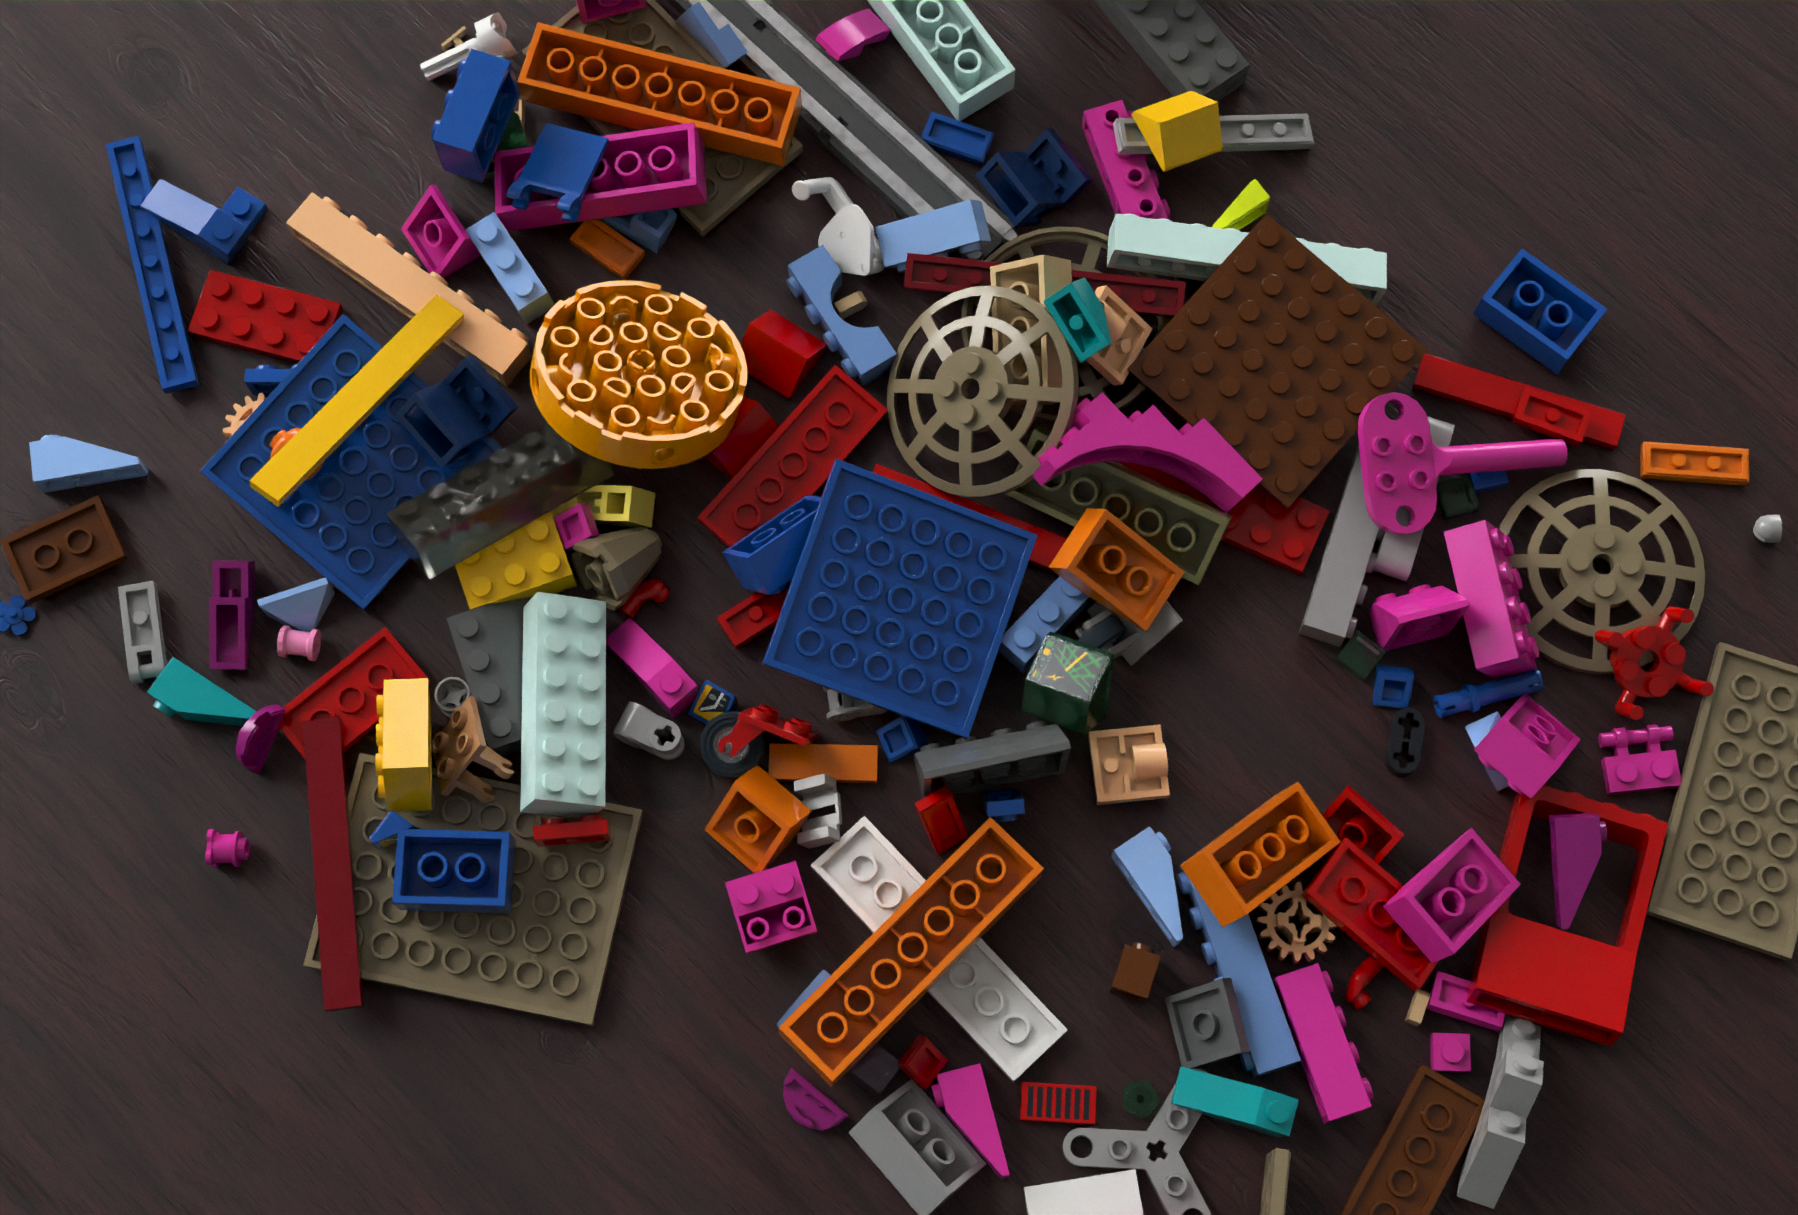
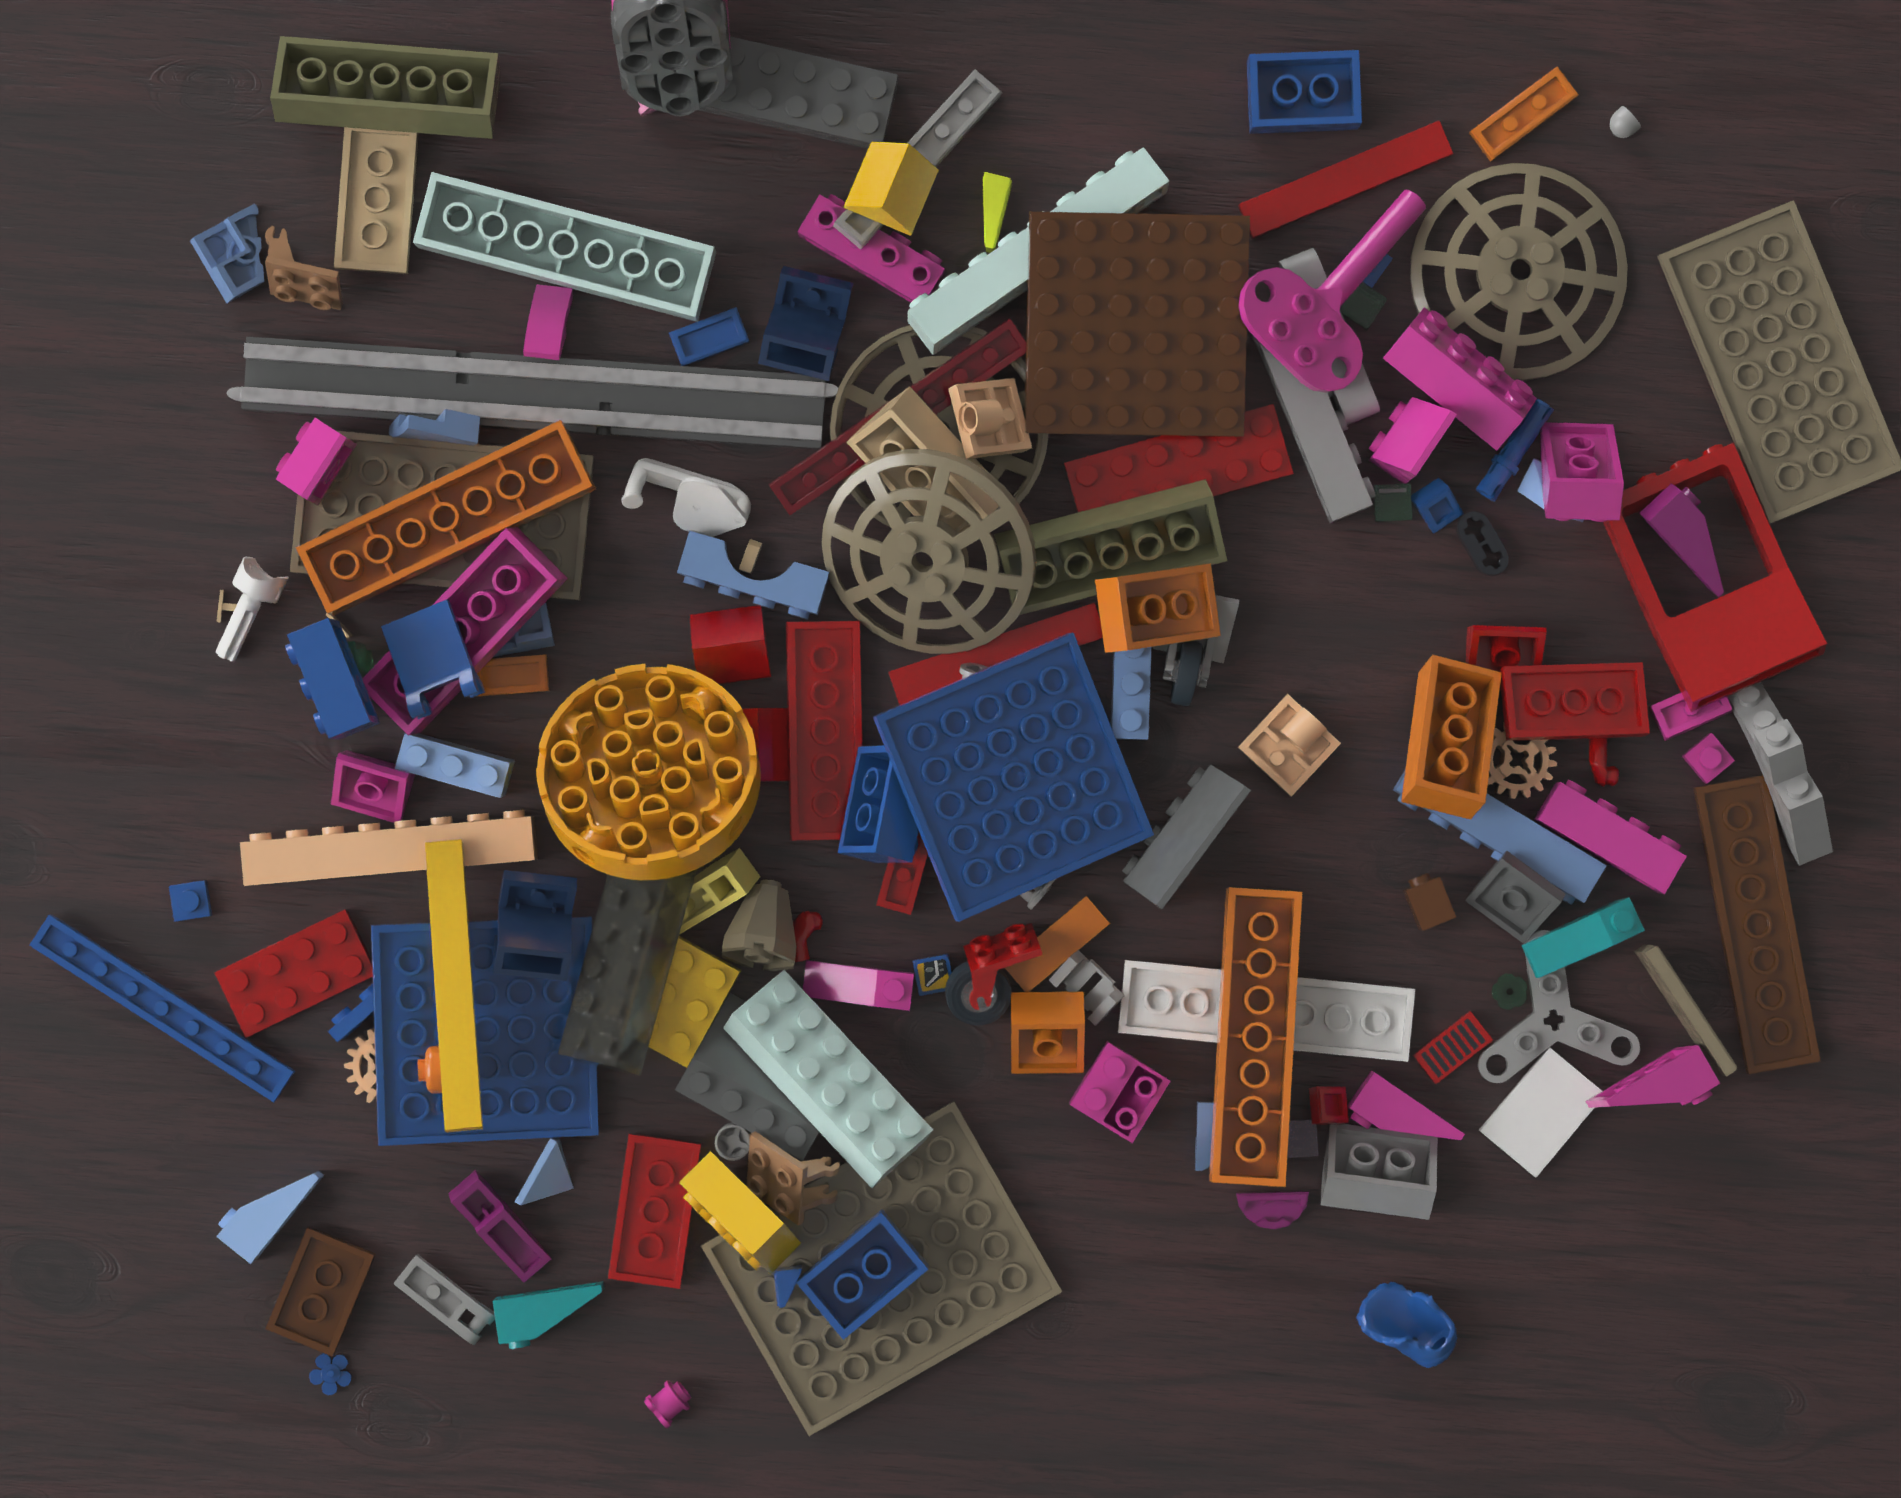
camera: 35 degrees left, 15 degrees up
(196, 220) = (165, 945): slope -> none
(257, 737) = (614, 1301): magenta plate -> none
(299, 643) = (573, 1203): bright pink bush -> none
(333, 865) = (761, 1344): dark red tile -> none
(557, 833) = (909, 1177): red plate -> none
(576, 525) = (708, 931): dark pink plate -> none
(644, 729) = (898, 1037): light grey piece -> none
(901, 738) = (1099, 875): blue slope -> none
(934, 233) = (772, 447): light blue brick -> none
(941, 819) = (1188, 915): red tile -> none
(1003, 804) = (1224, 862): blue plate -> none
(1068, 683) = (1195, 728): slope -> none
(1080, 318) = (966, 438): teal slope -> none
(1148, 439) = (1134, 460): dark pink arch -> none
(1150, 873) = (1377, 816): light blue slope -> none
(1417, 1007) = (1657, 745): tan piece -> none
(1452, 896) = (1620, 645): dark pink slope -> none
(1552, 416) = (1385, 176): red plate -> none
(1640, 771) = (1679, 410): dark pink plate -> none
(1667, 665) = (1635, 322): red plate -> none

